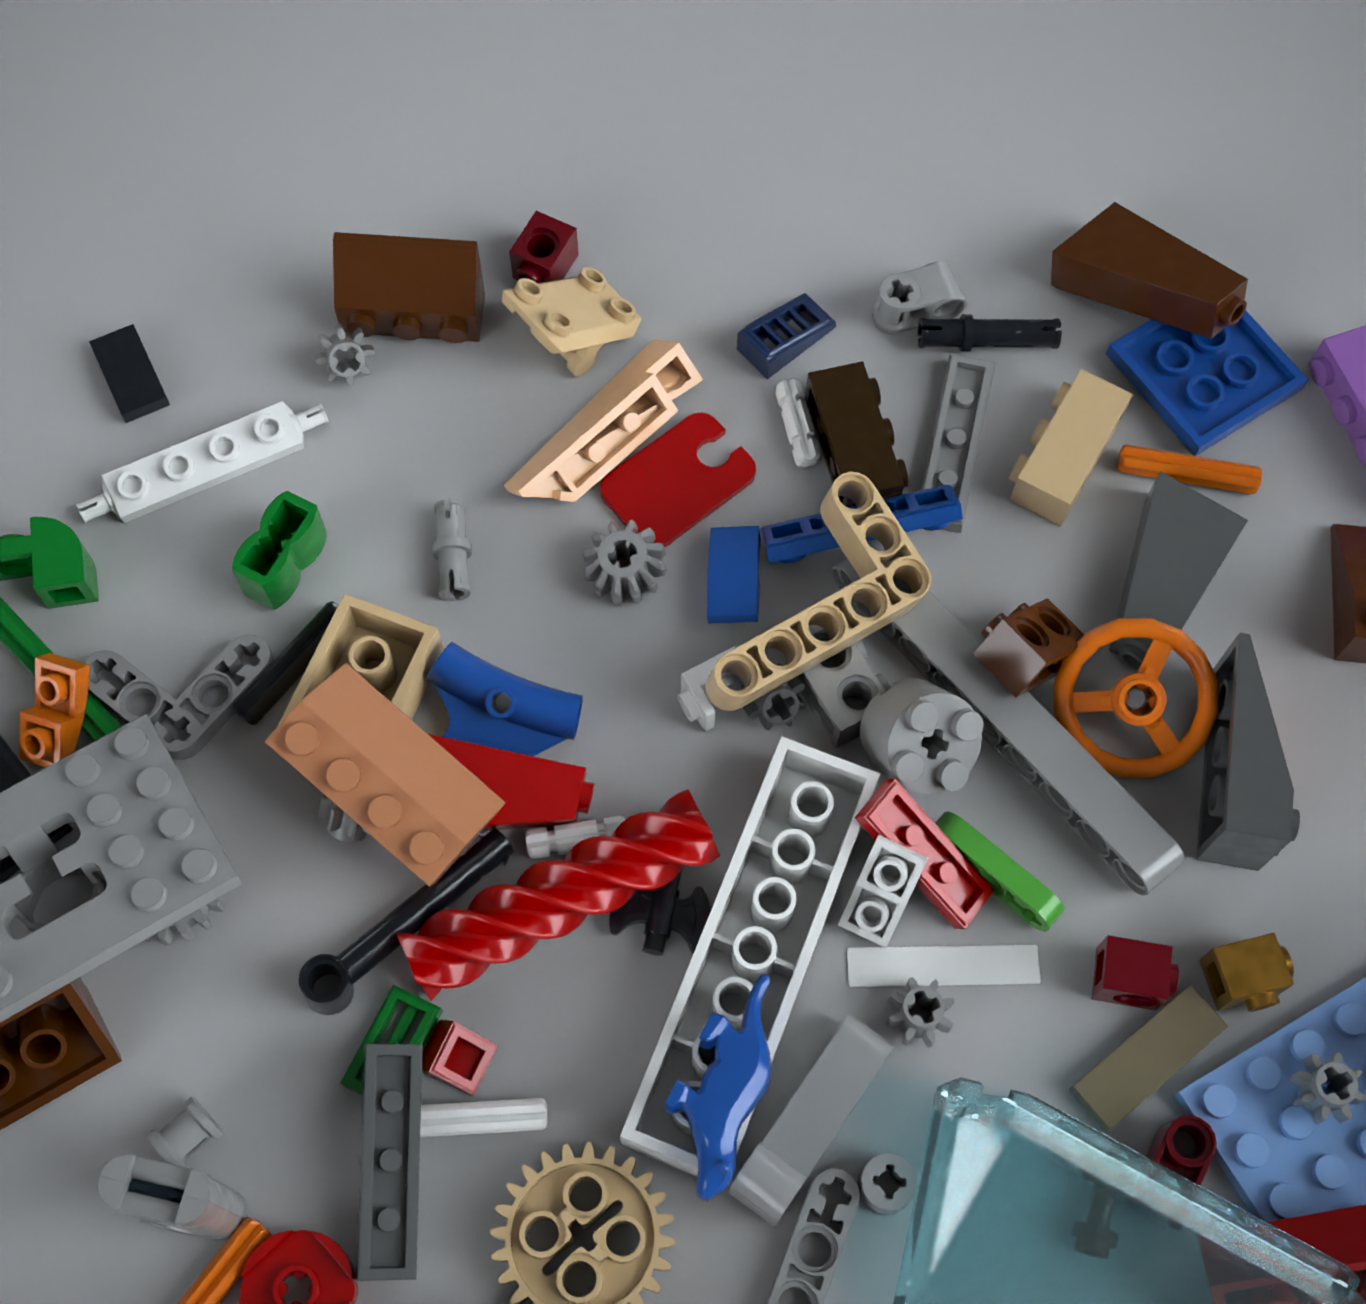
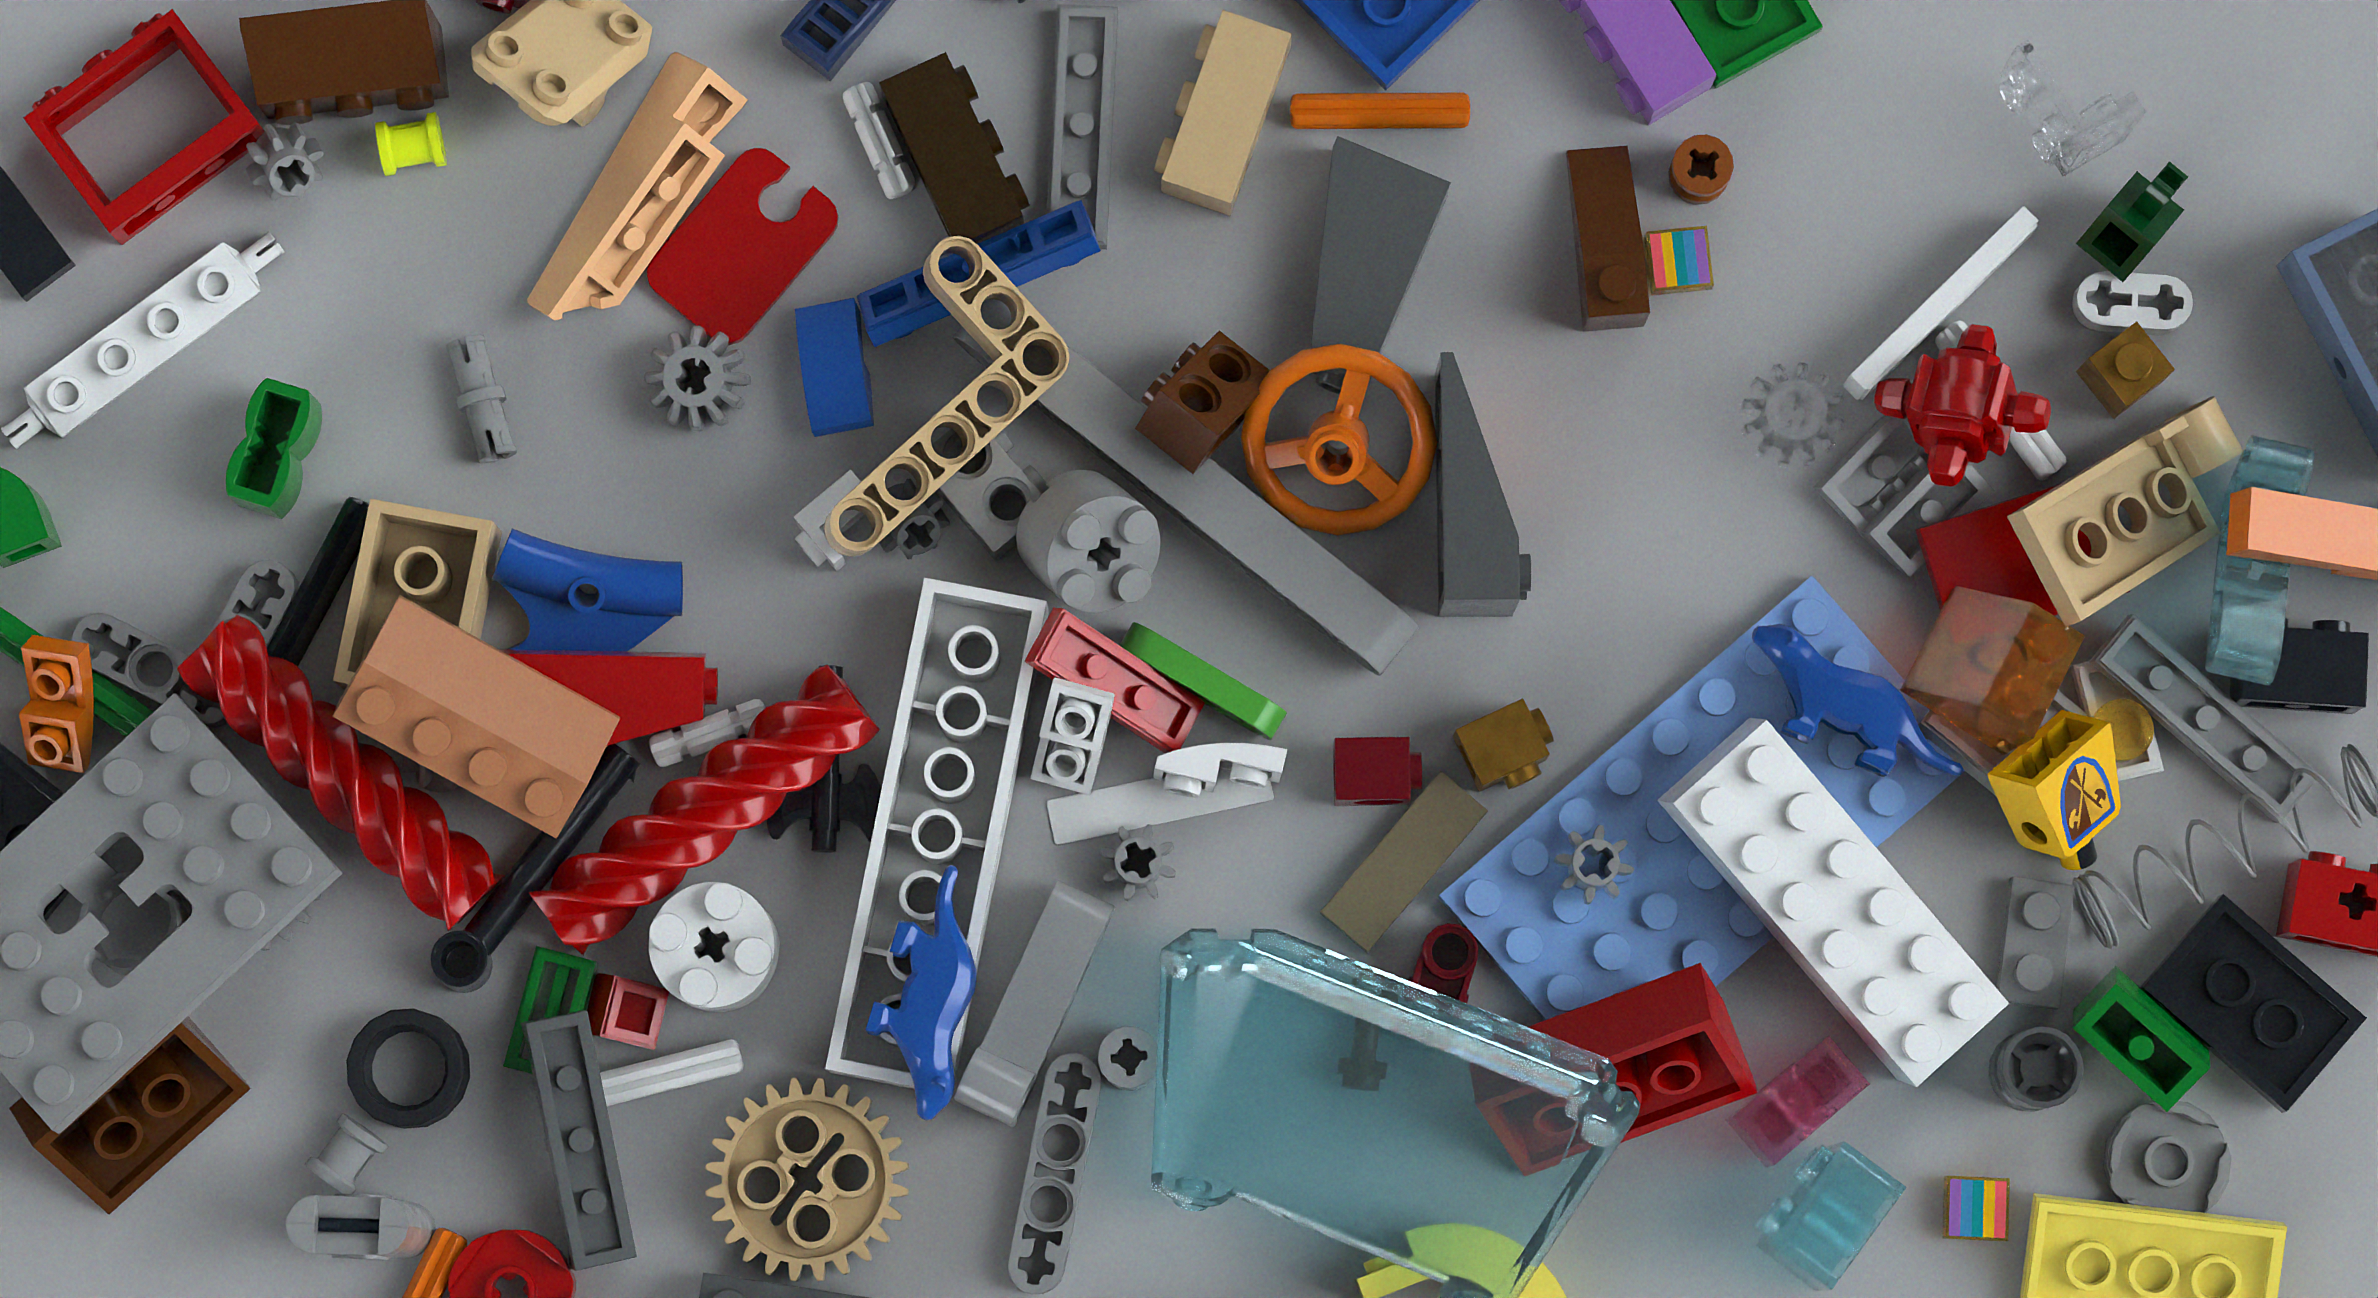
camera: 10 degrees left, 15 degrees up
(223, 1046) = (374, 1035): none -> black tyre
(261, 351) = (179, 176): none -> red window
(268, 817) = (348, 780): none -> red piece
(442, 361) = (410, 144): none -> neon yellow bush
(514, 1002) = (679, 936): none -> white brick
(982, 940) = (1196, 767): none -> white slope

